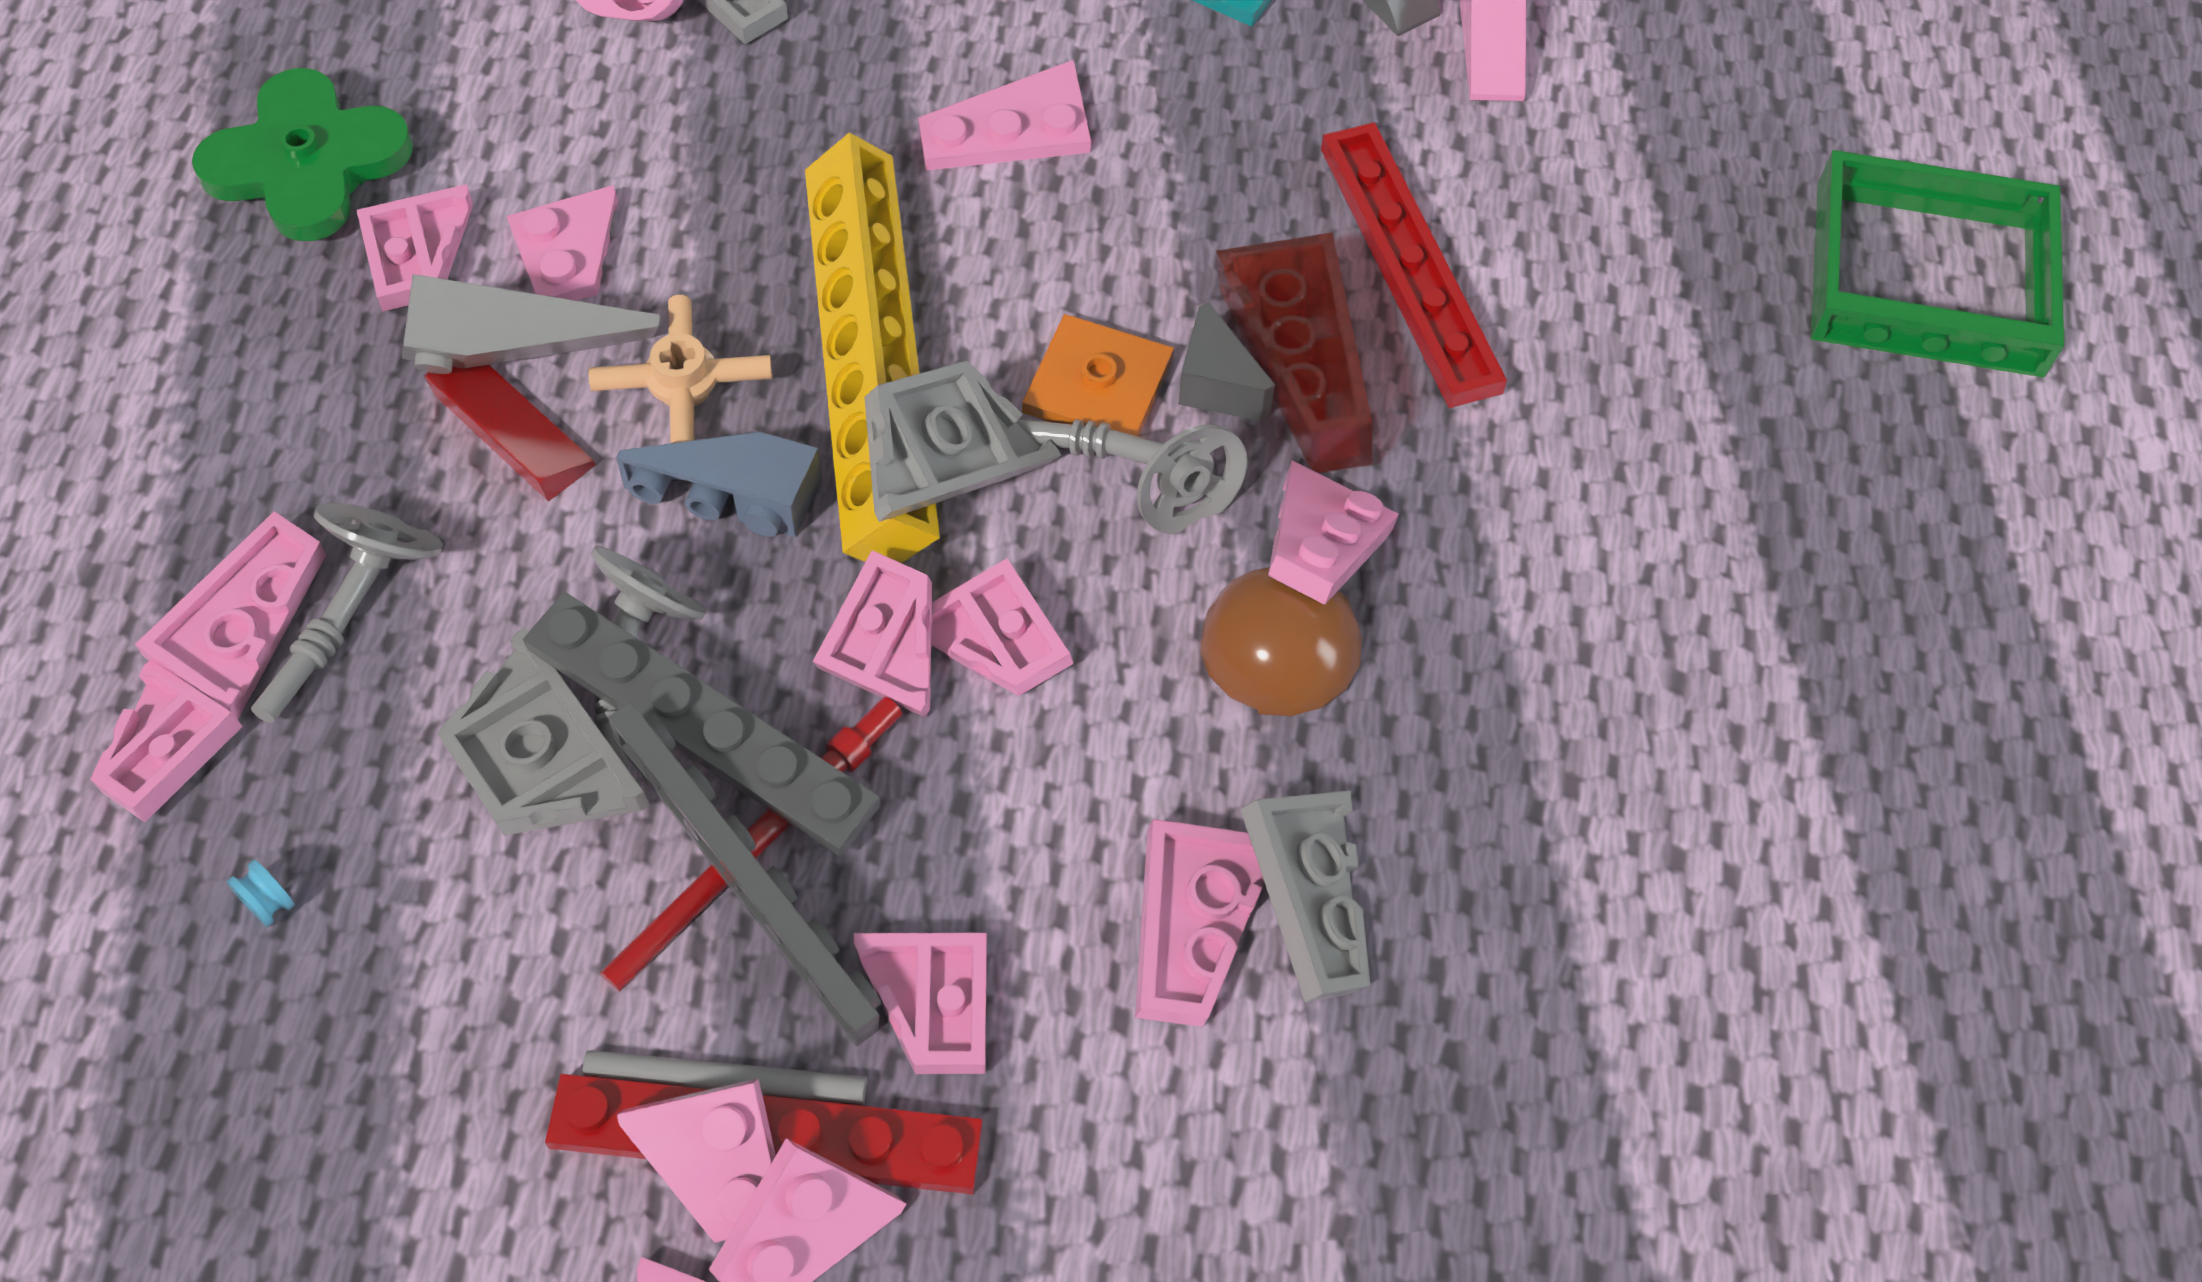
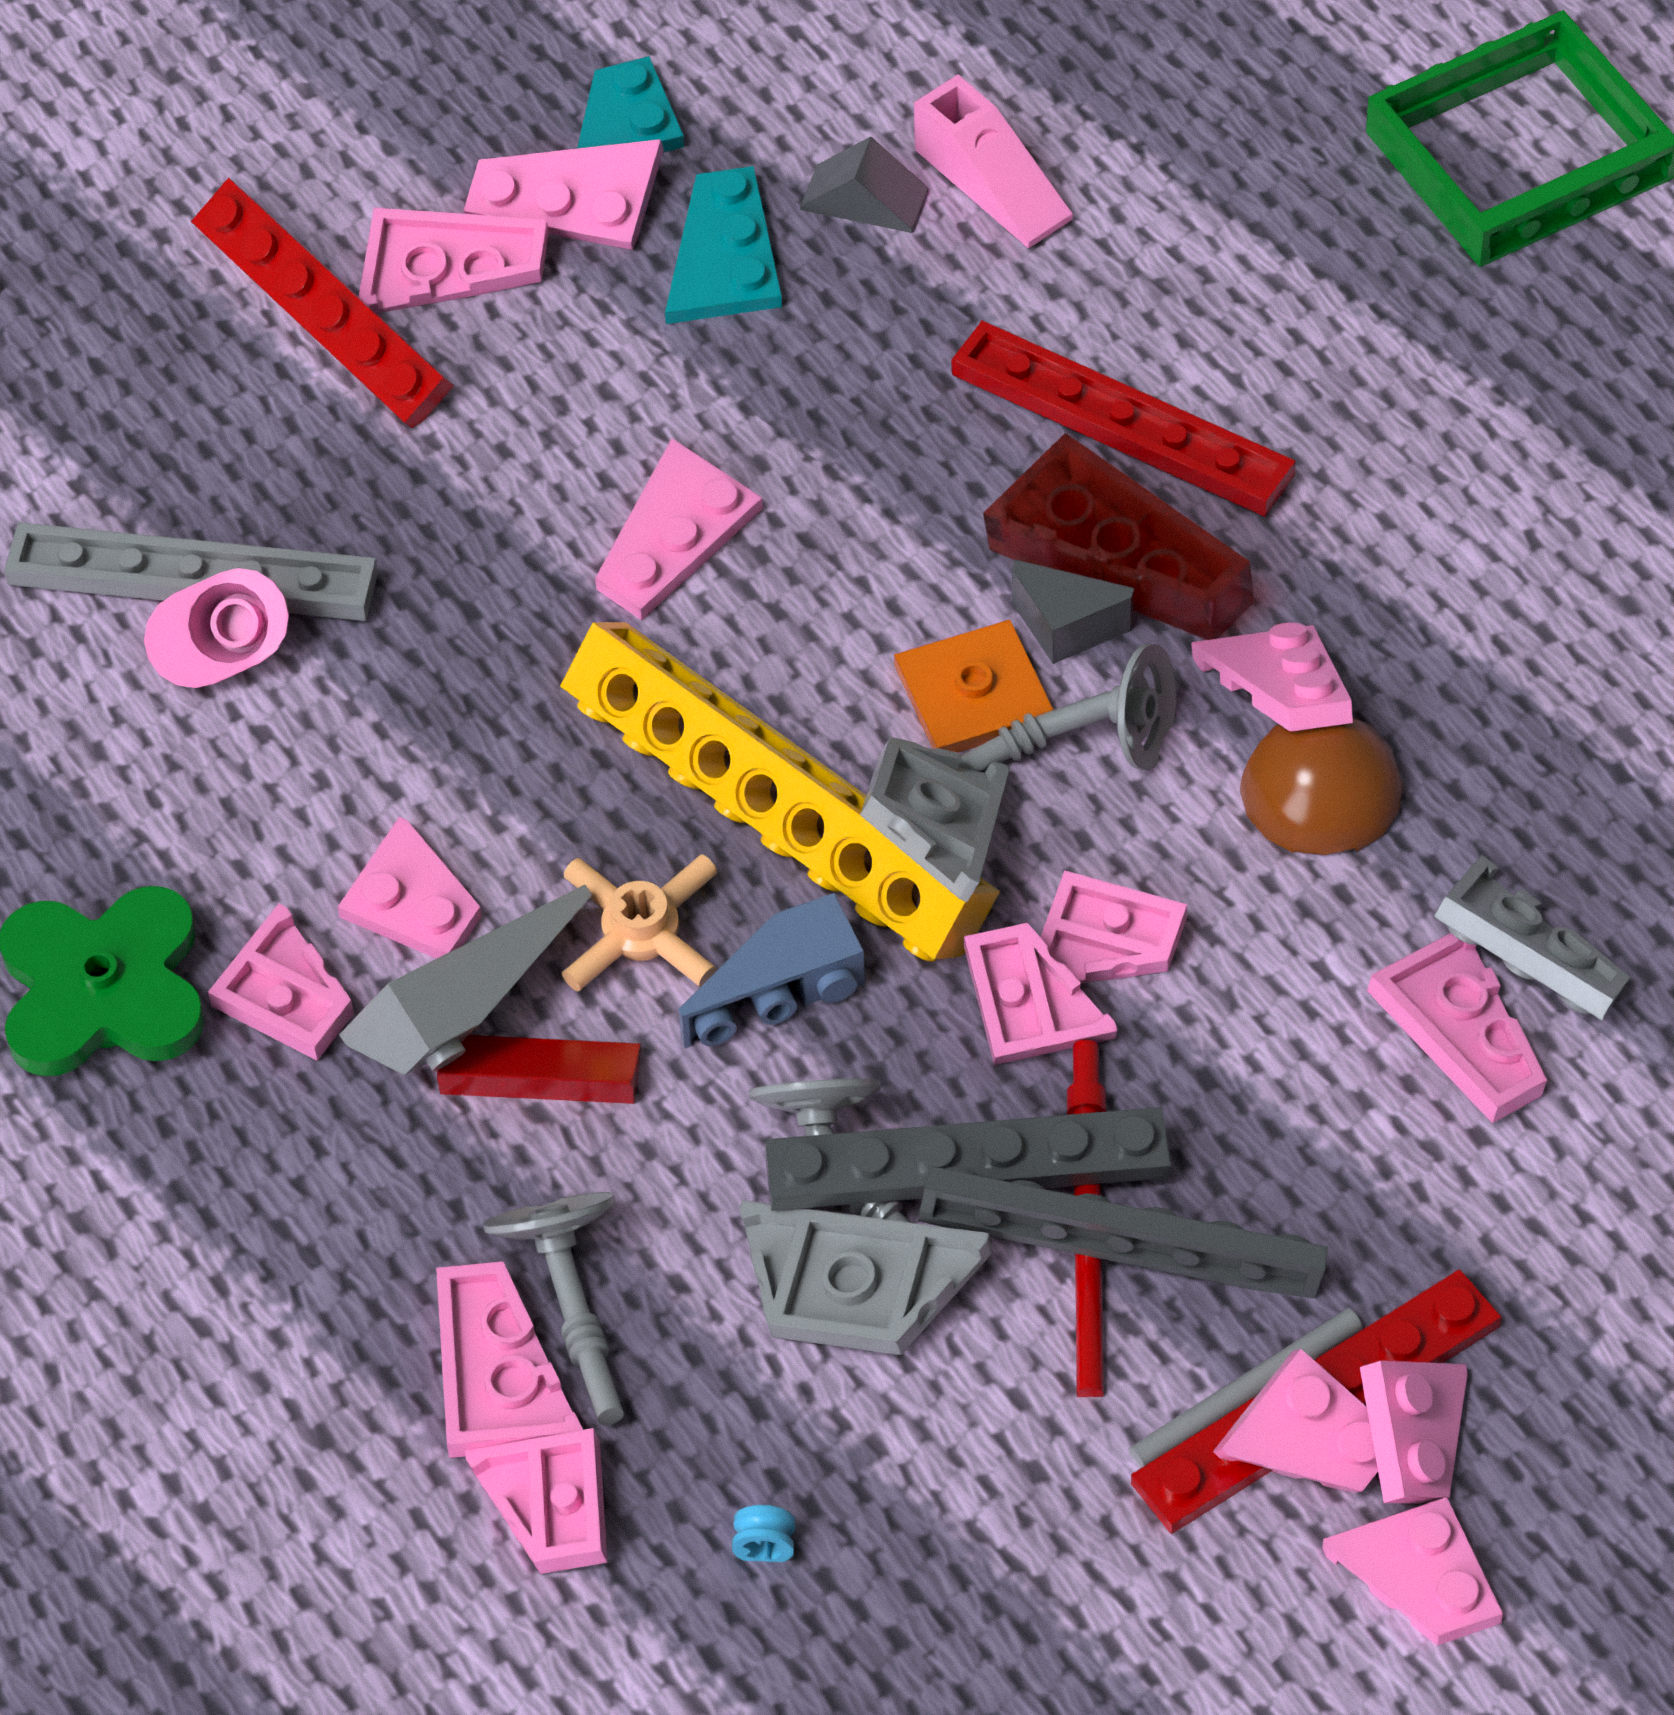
camera: 35 degrees left, 5 degrees down
(931, 995) = (1343, 1209): bright pink wing -> none

